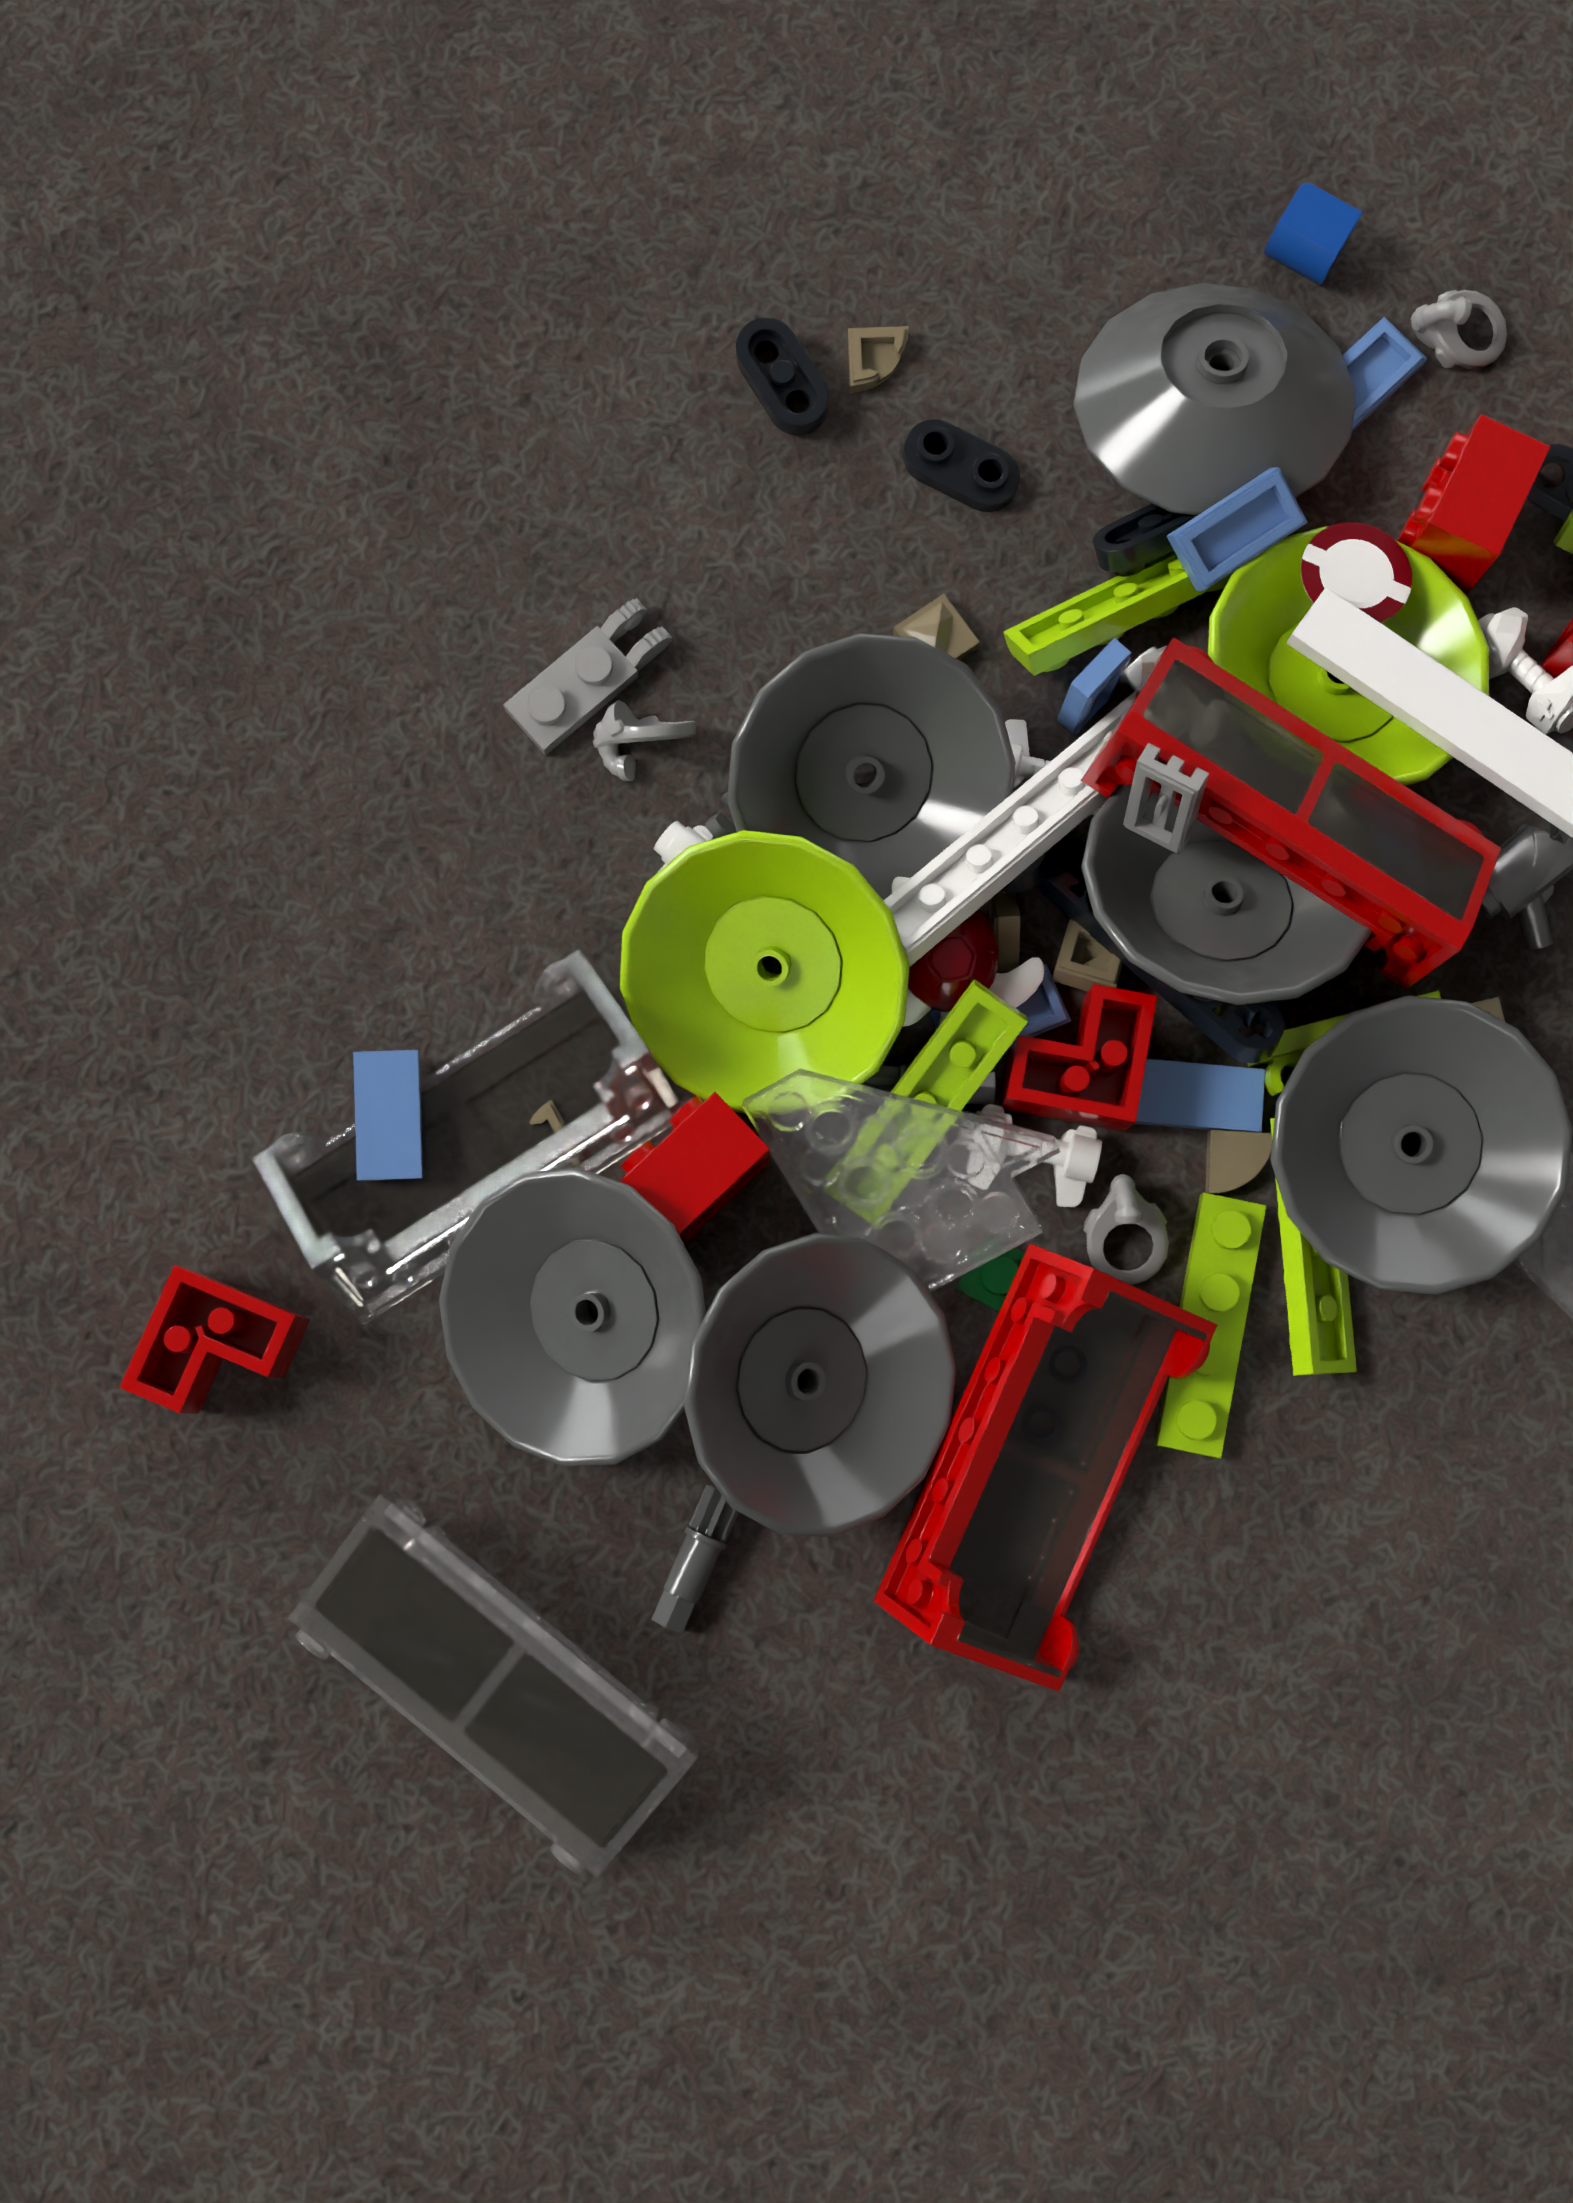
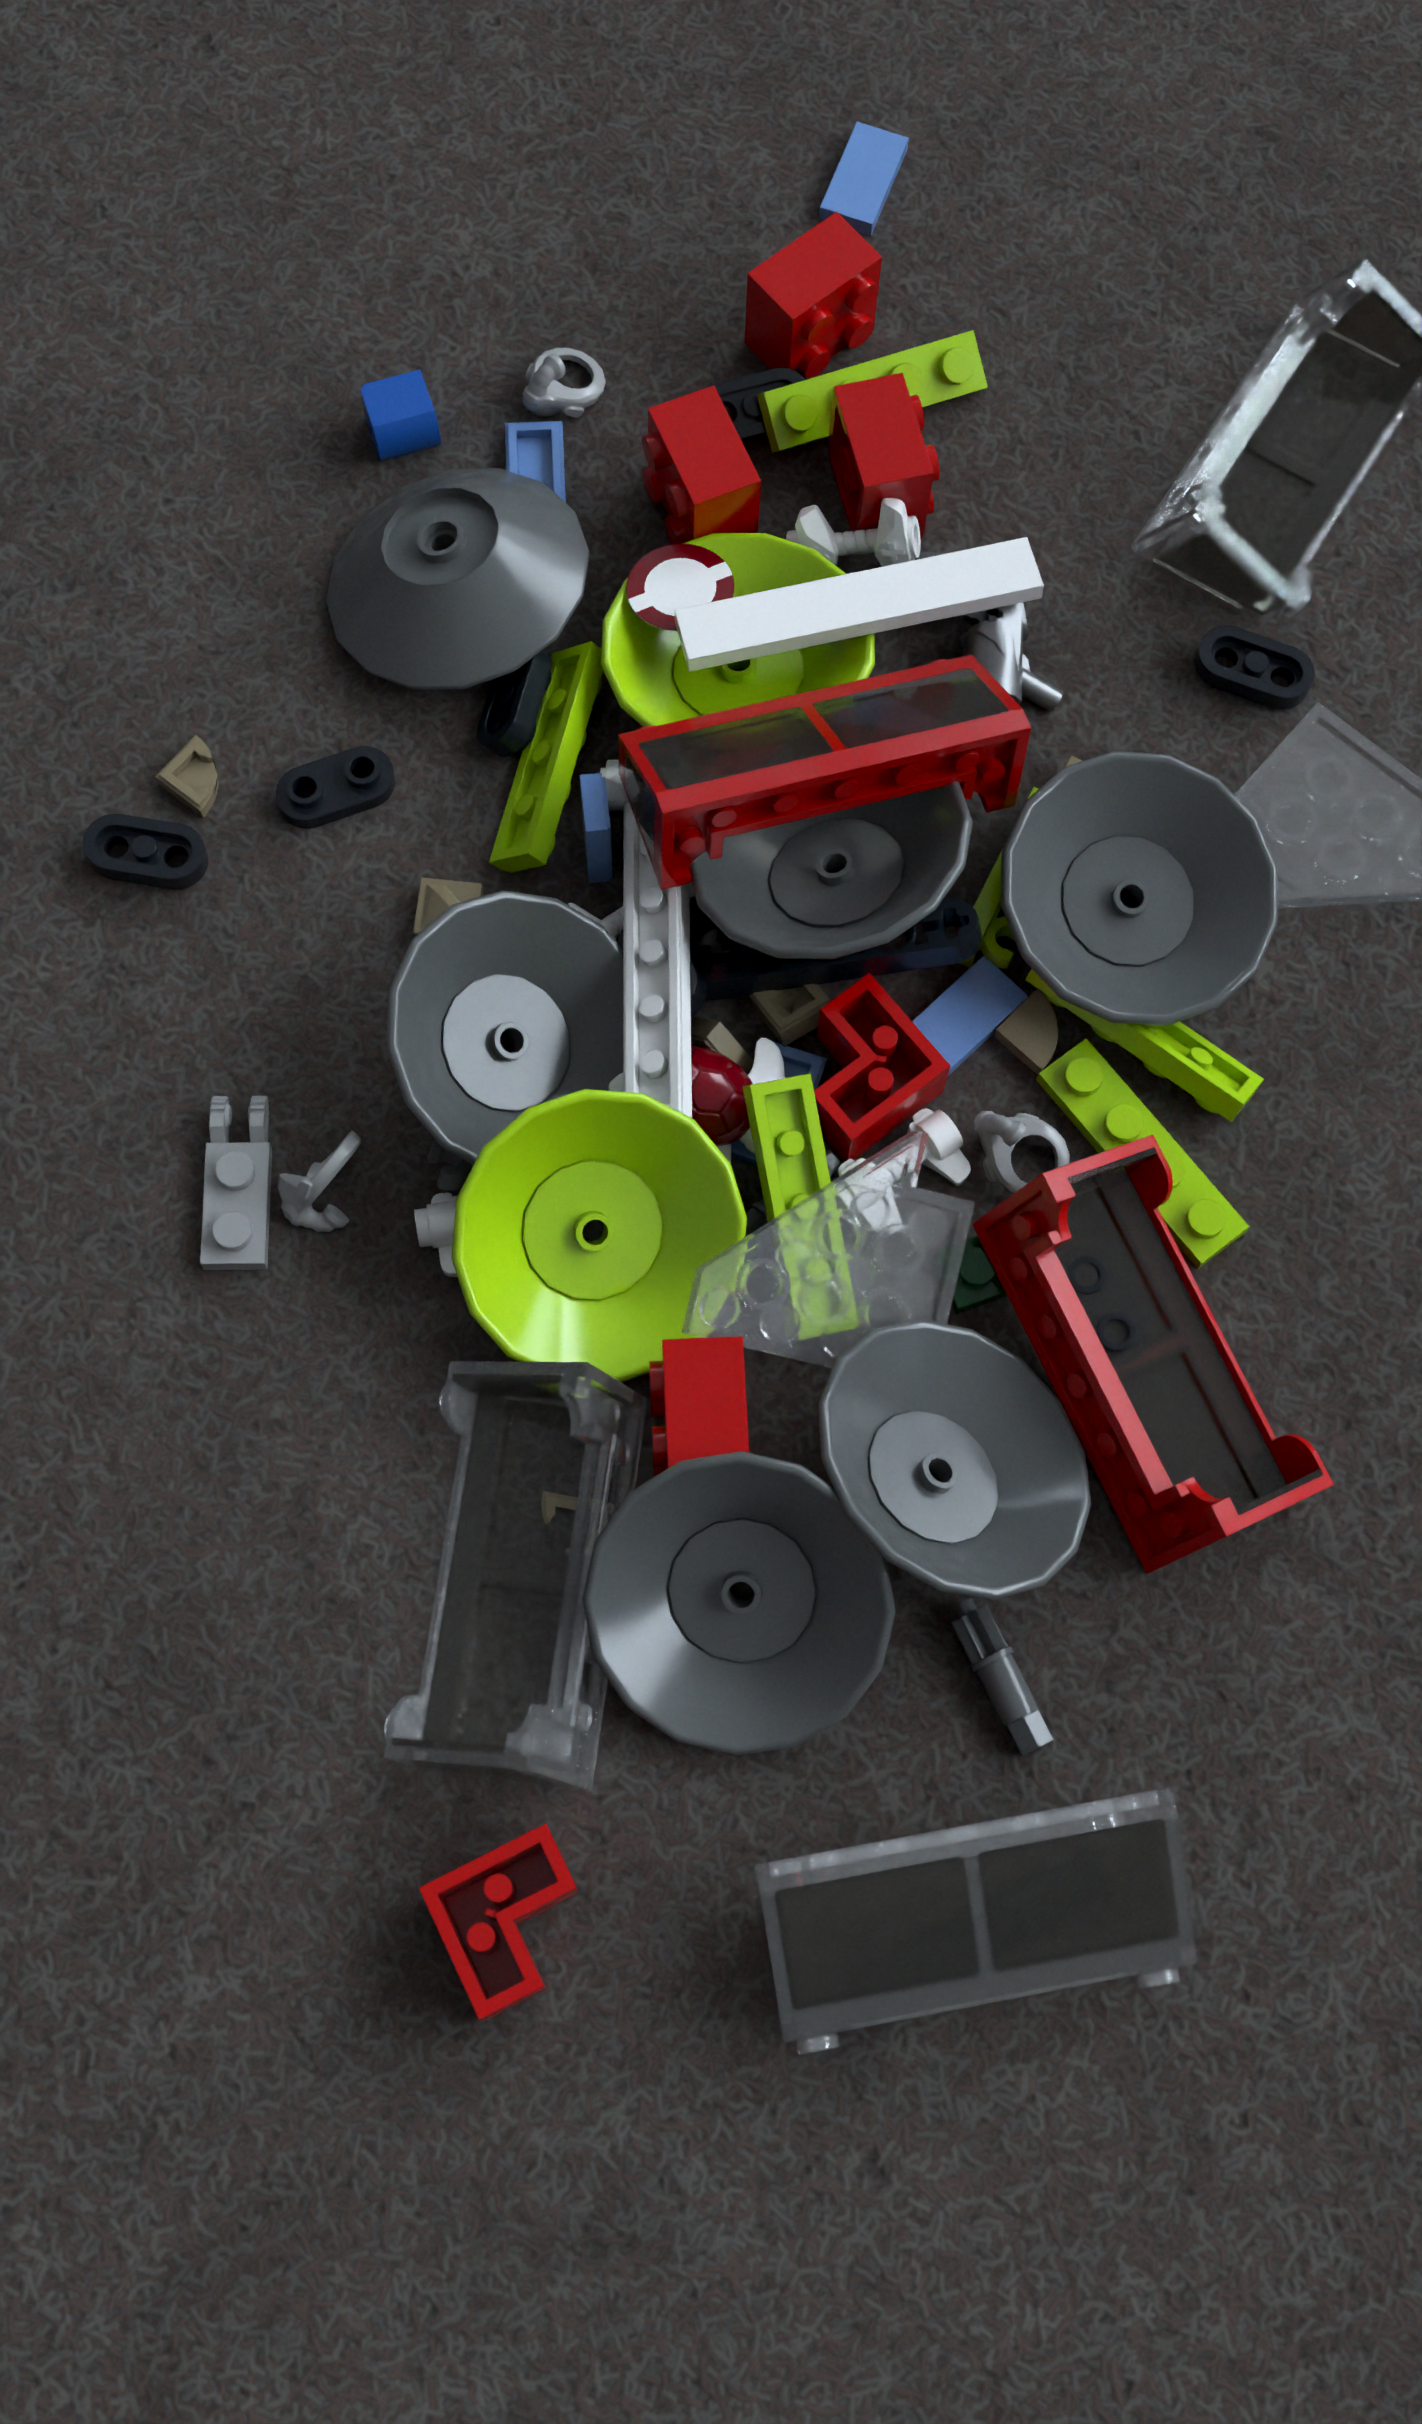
camera: 50 degrees left, 10 degrees down
(388, 1114) = (444, 1623): medium blue tile -> none
(1172, 781) = (730, 808): light grey tile -> none
(1237, 529) = (572, 635): medium blue tile -> none

